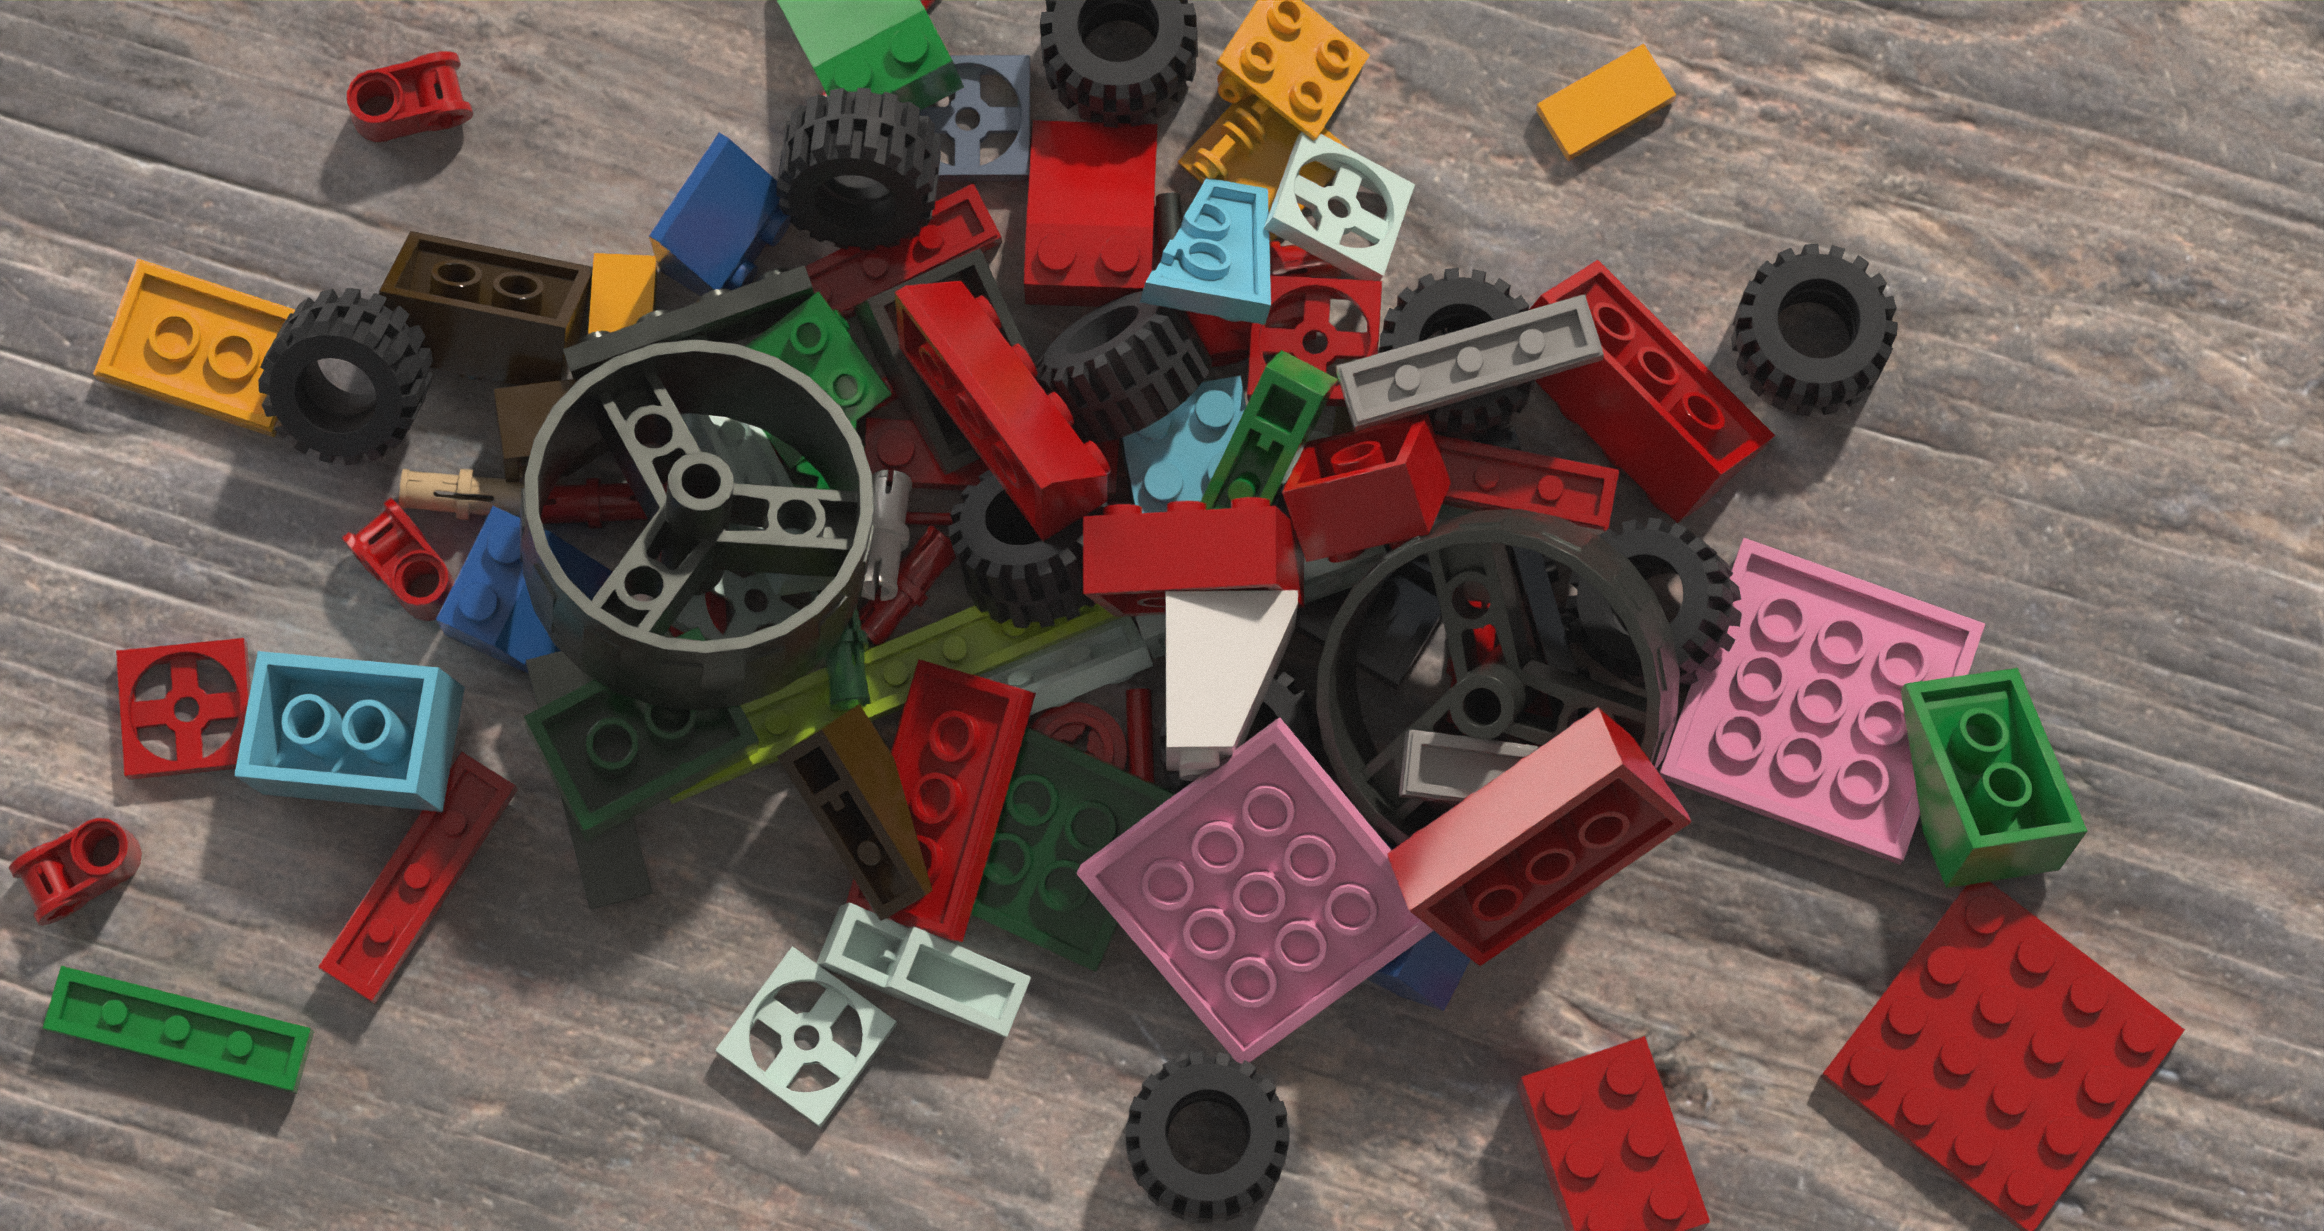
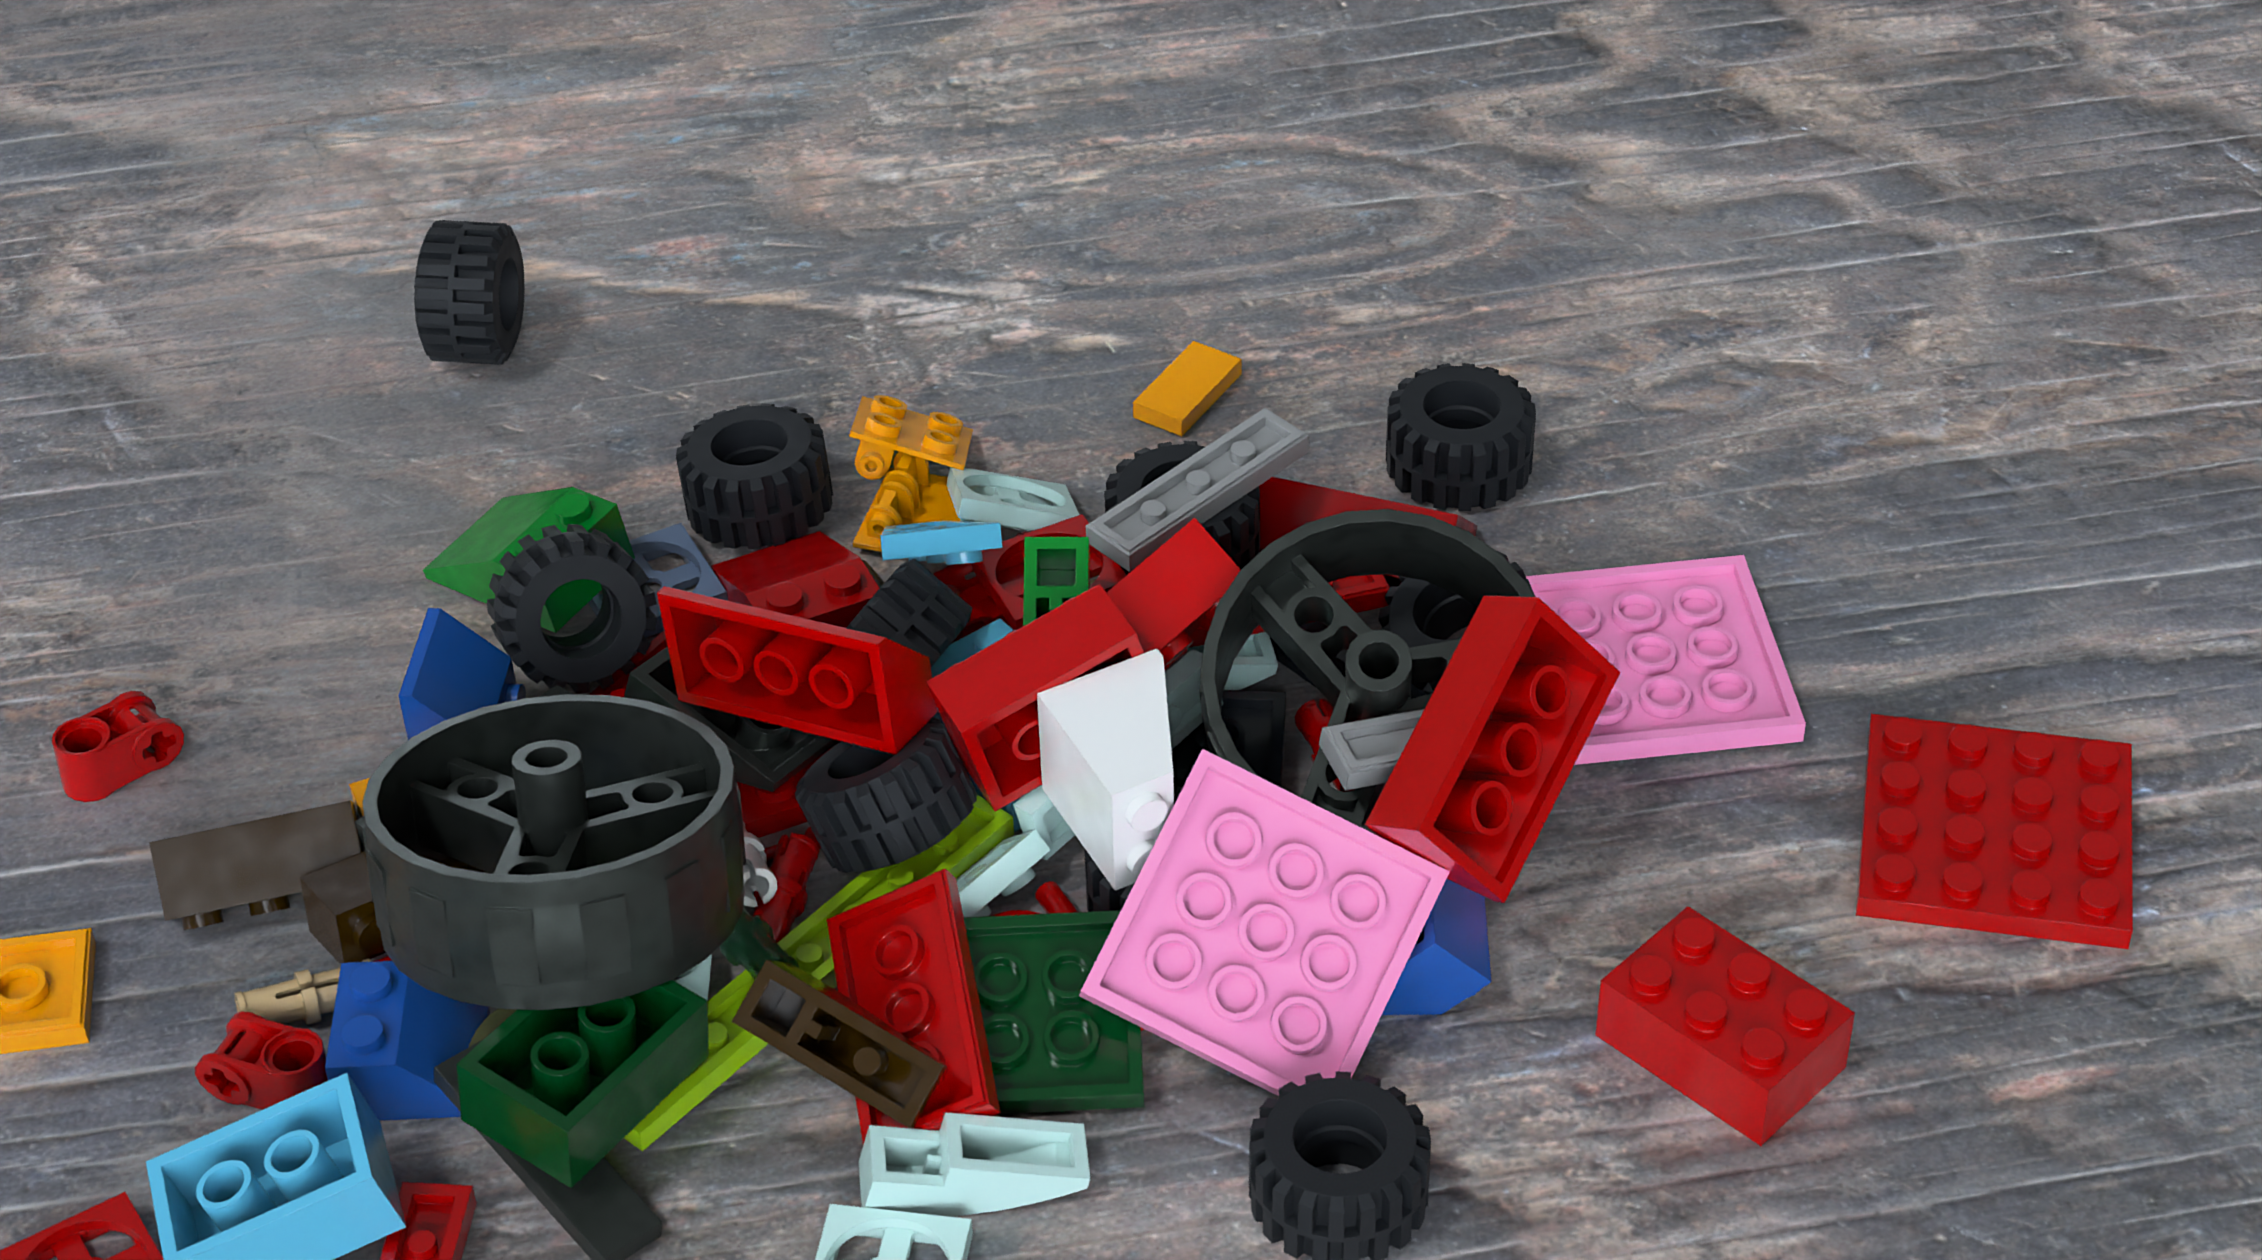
camera: 25 degrees left, 35 degrees down
(325, 415) = (93, 889): black tyre -> none
(1987, 779) = (1838, 641): green slope -> none

